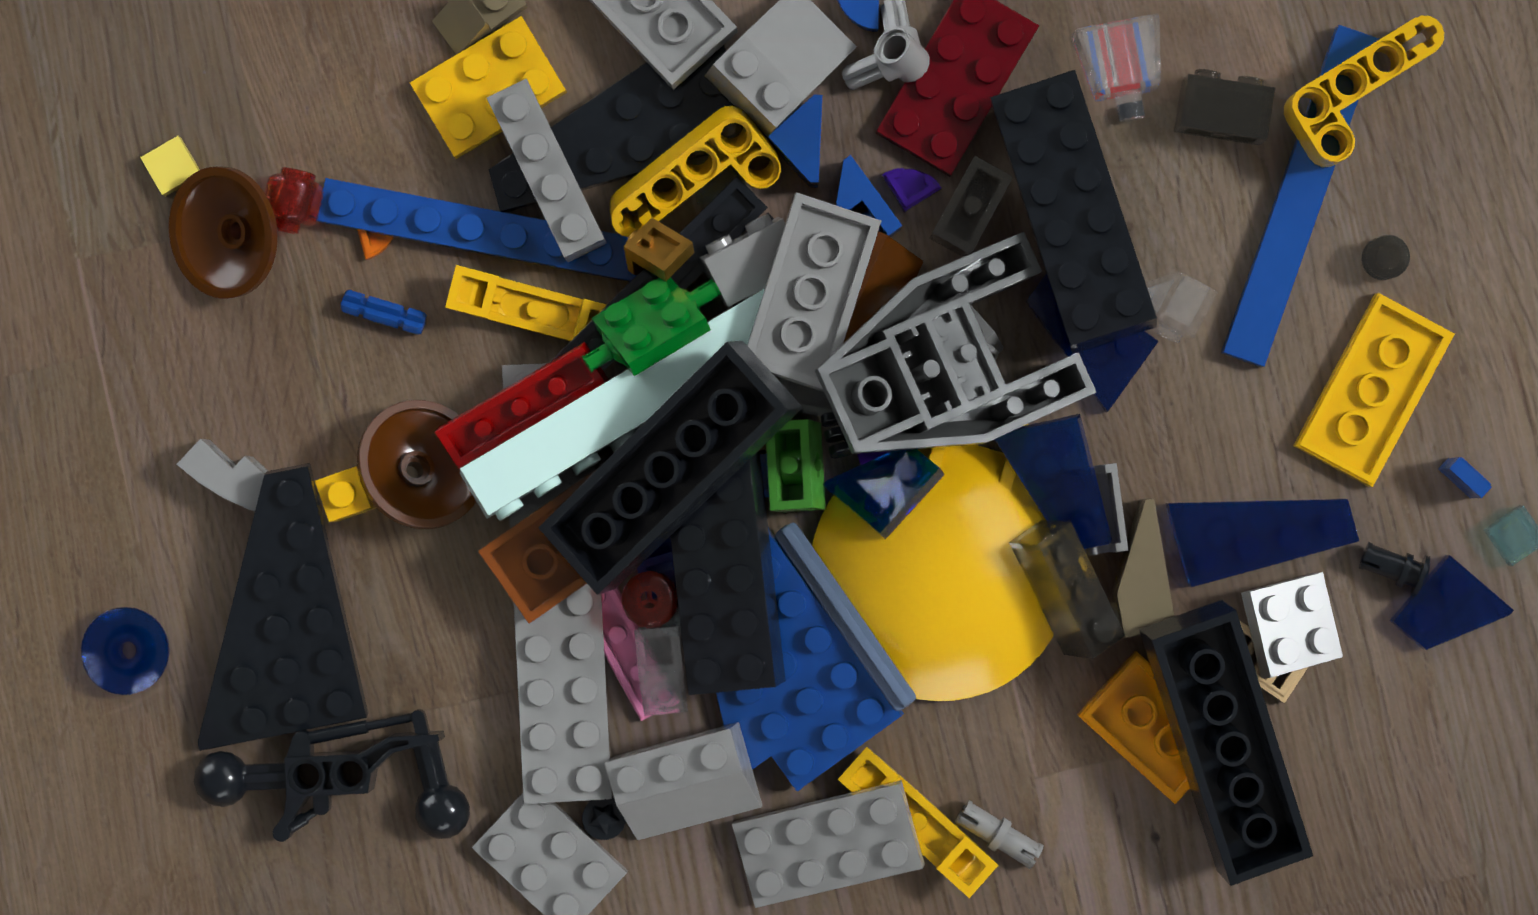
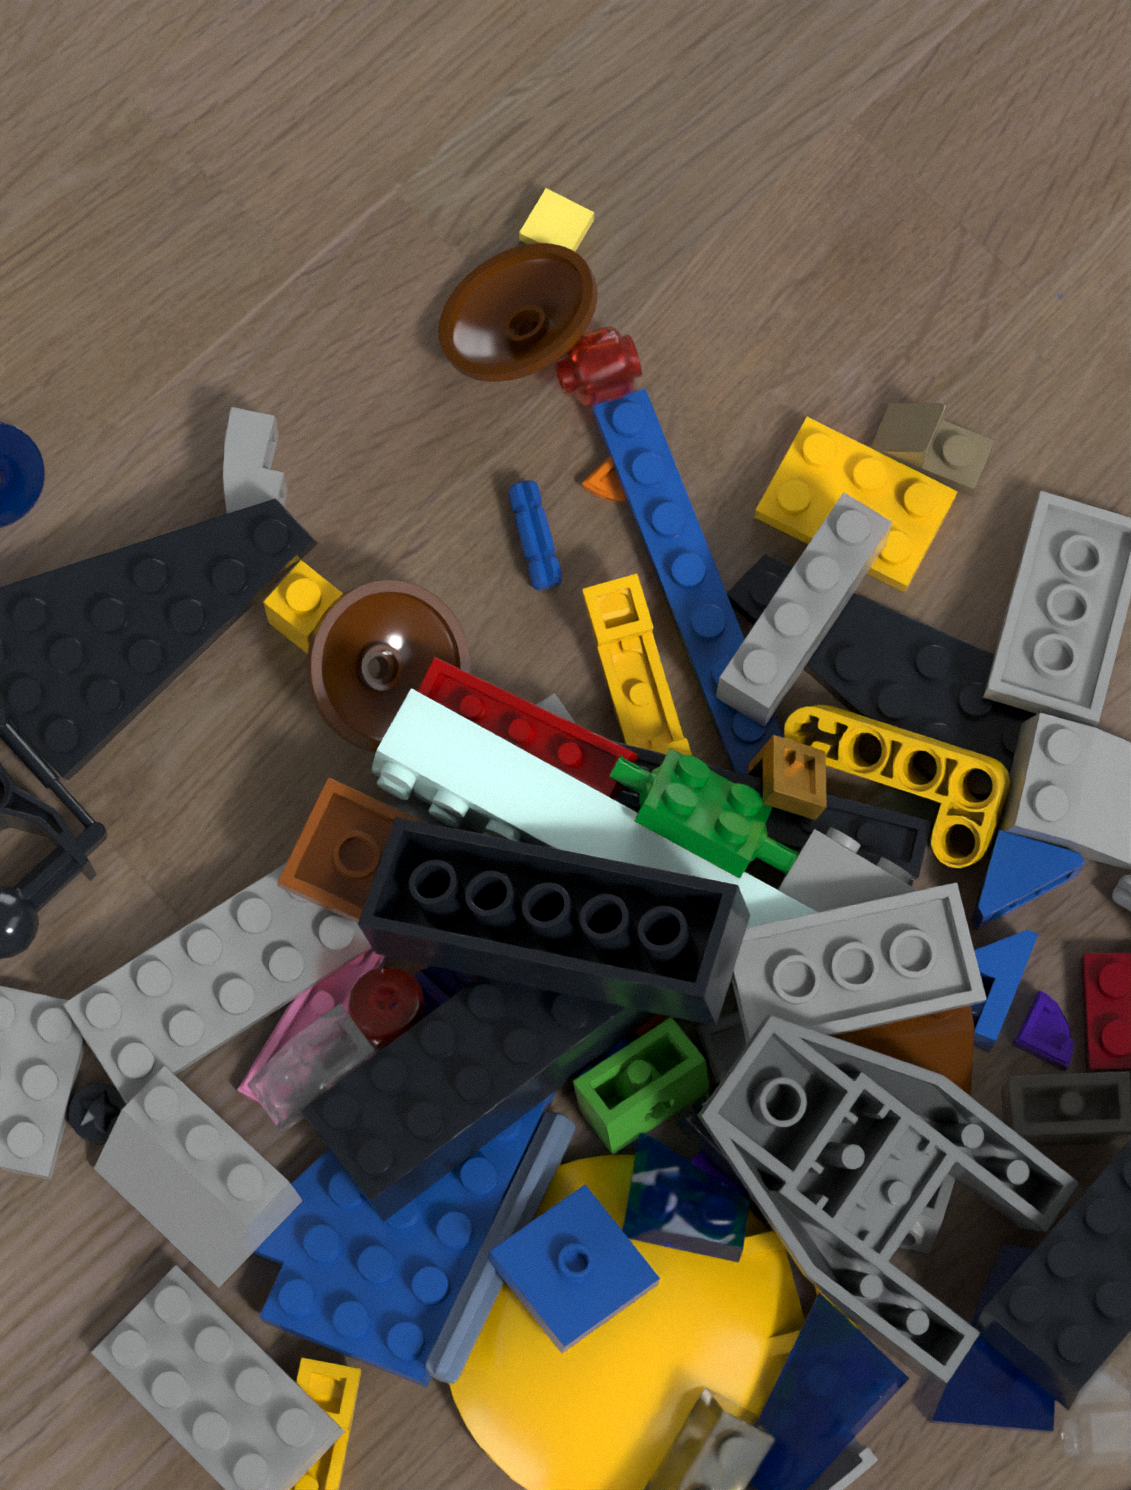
camera: 55 degrees right, 15 degrees down
(889, 582) = (573, 1268): none -> blue plate

